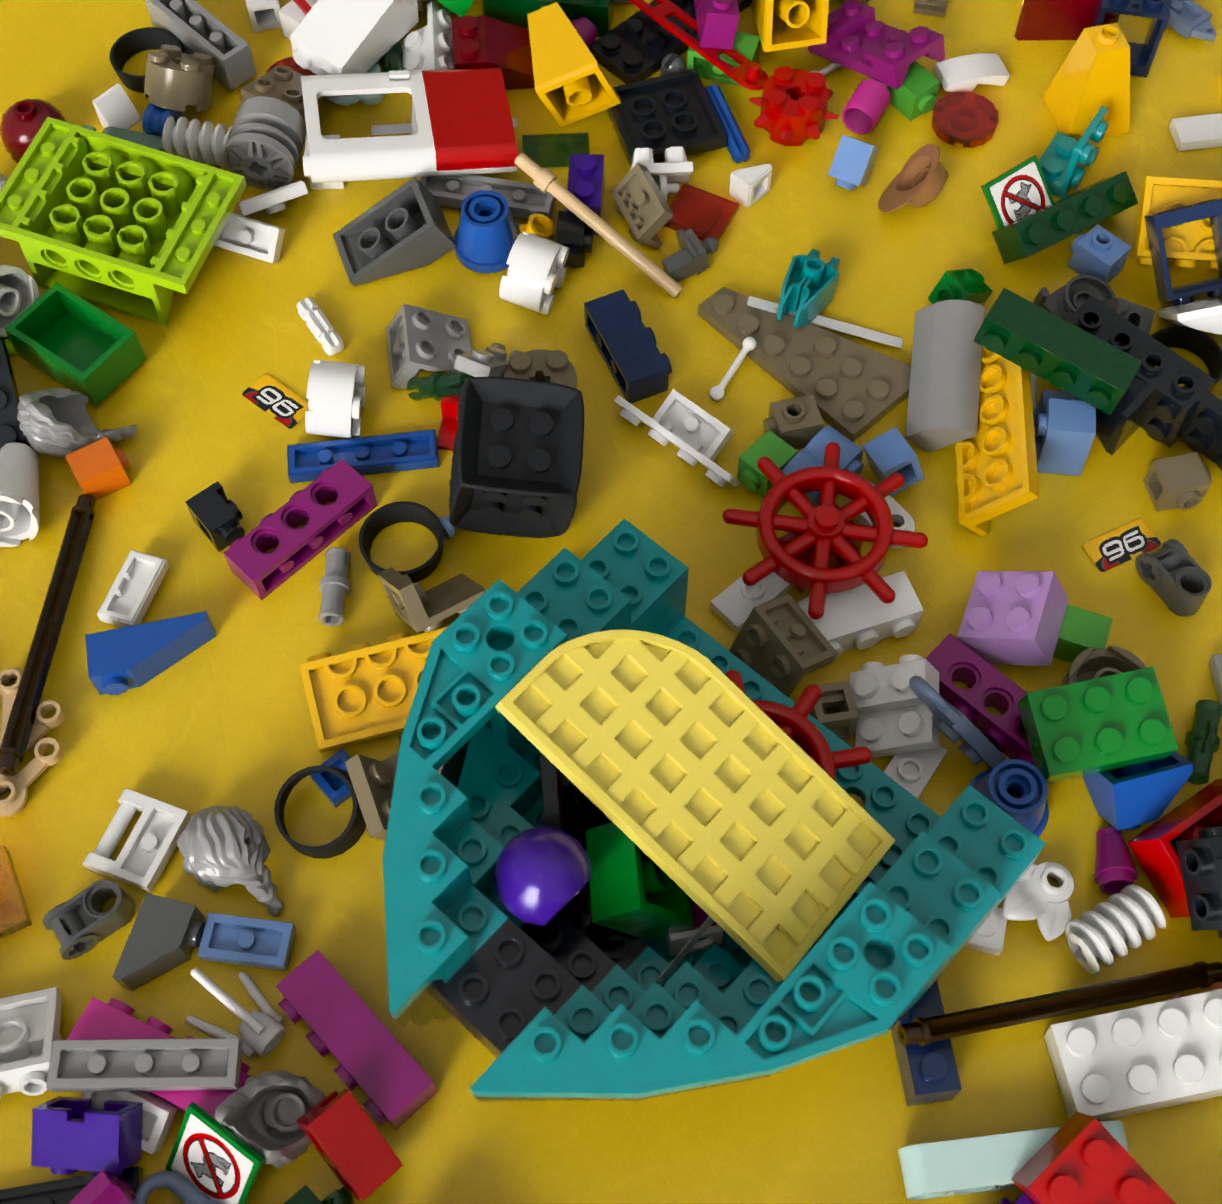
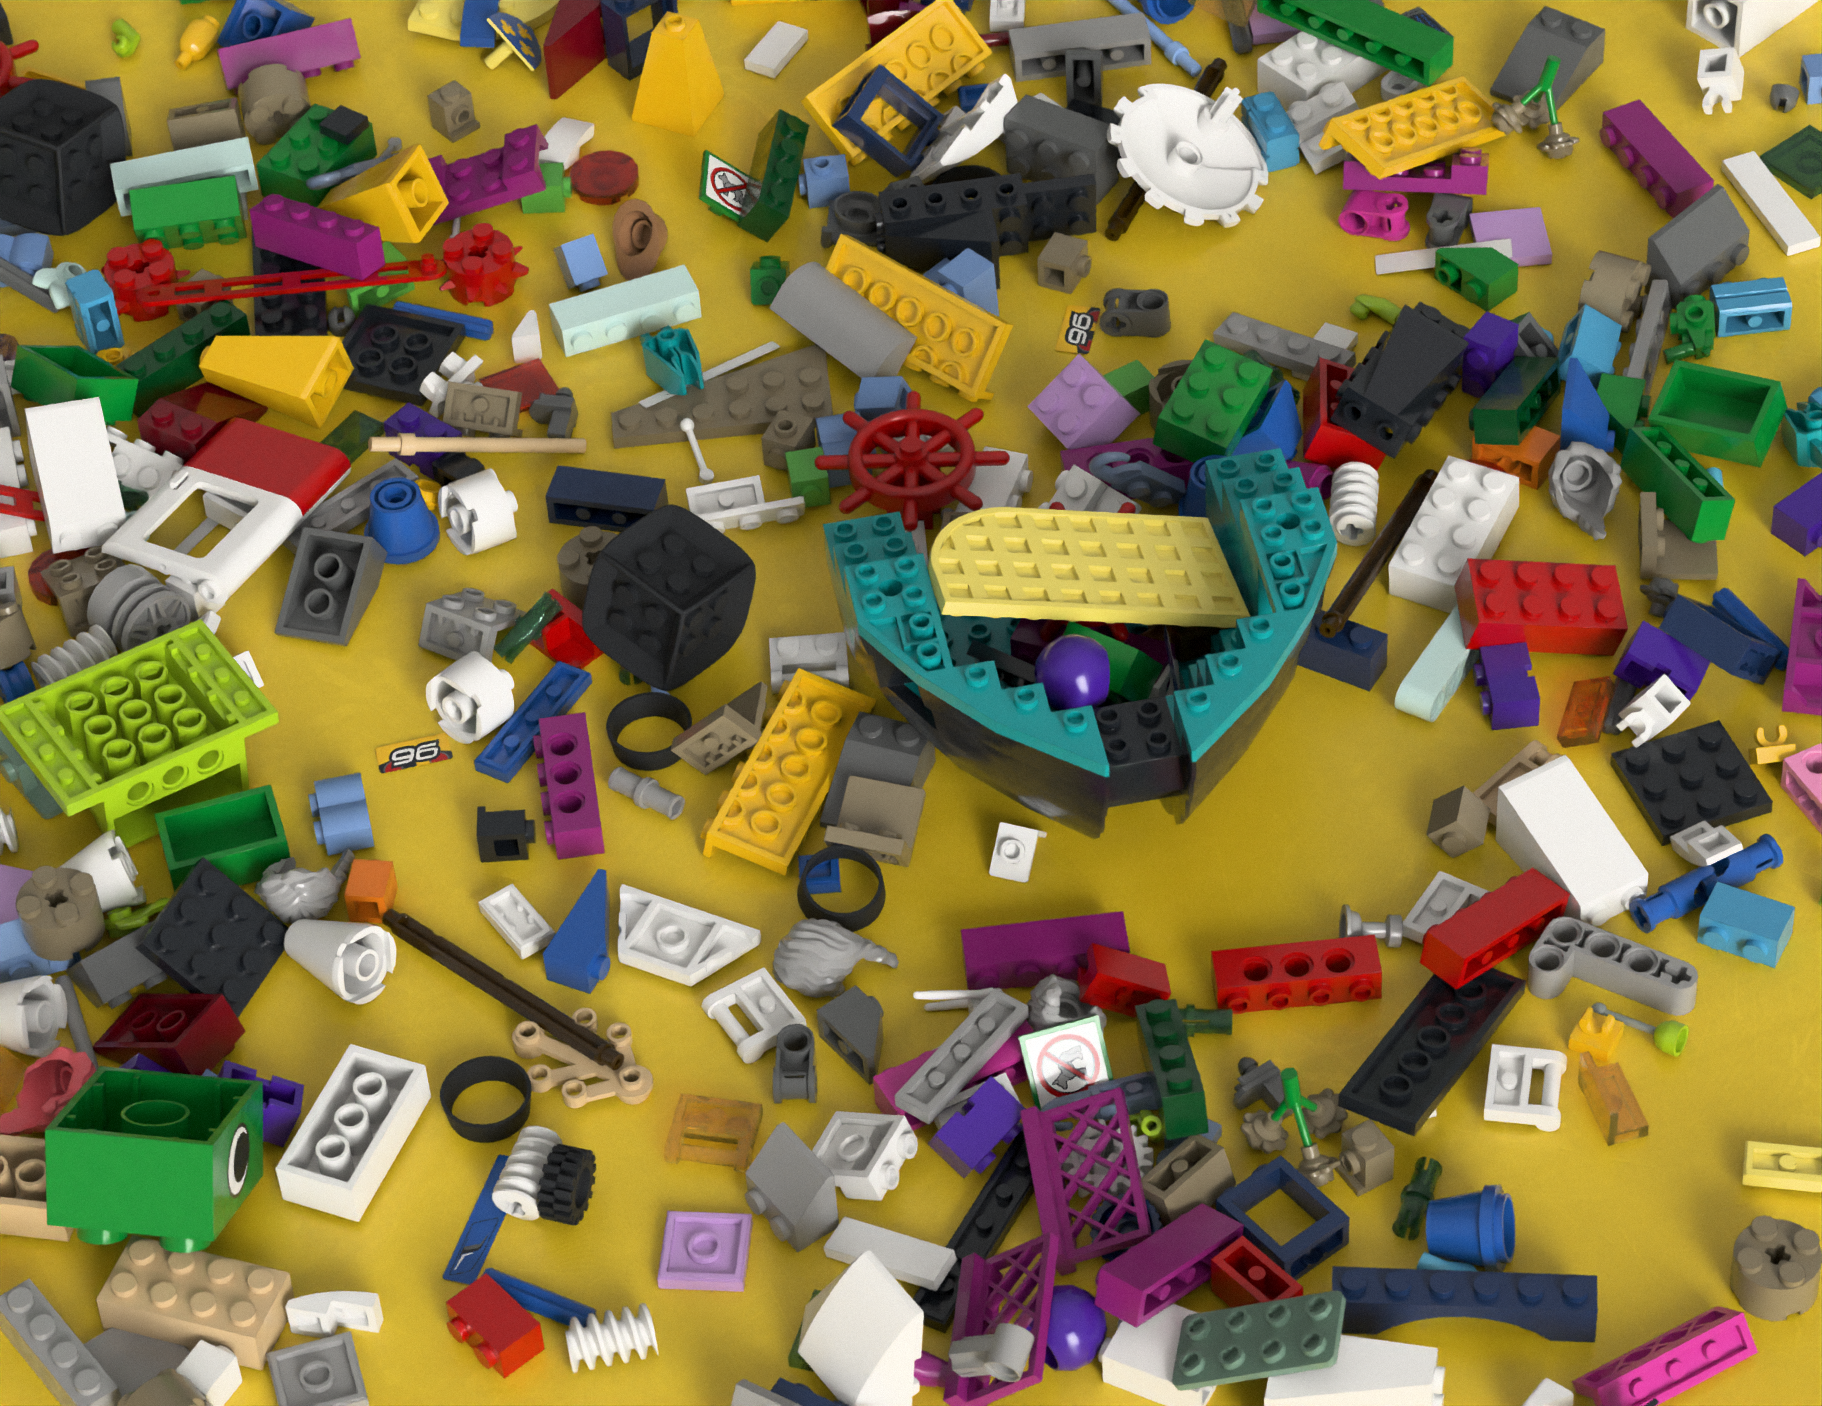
camera: 50 degrees left, 15 degrees down
(168, 398) = (342, 813): none -> medium blue brick
(186, 719) = (676, 938): none -> white wing
(247, 941) = (916, 972): medium blue plate -> none
(320, 326) = (369, 685): white axle -> none
(484, 362) = (543, 579): light grey hinge -> none
(836, 223) = (625, 310): none -> light aqua brick
(866, 106) = (529, 224): dark pink piece -> none
(1057, 351) = (911, 234): dark green brick -> none
(1066, 157) = (721, 136): teal bracket -> none

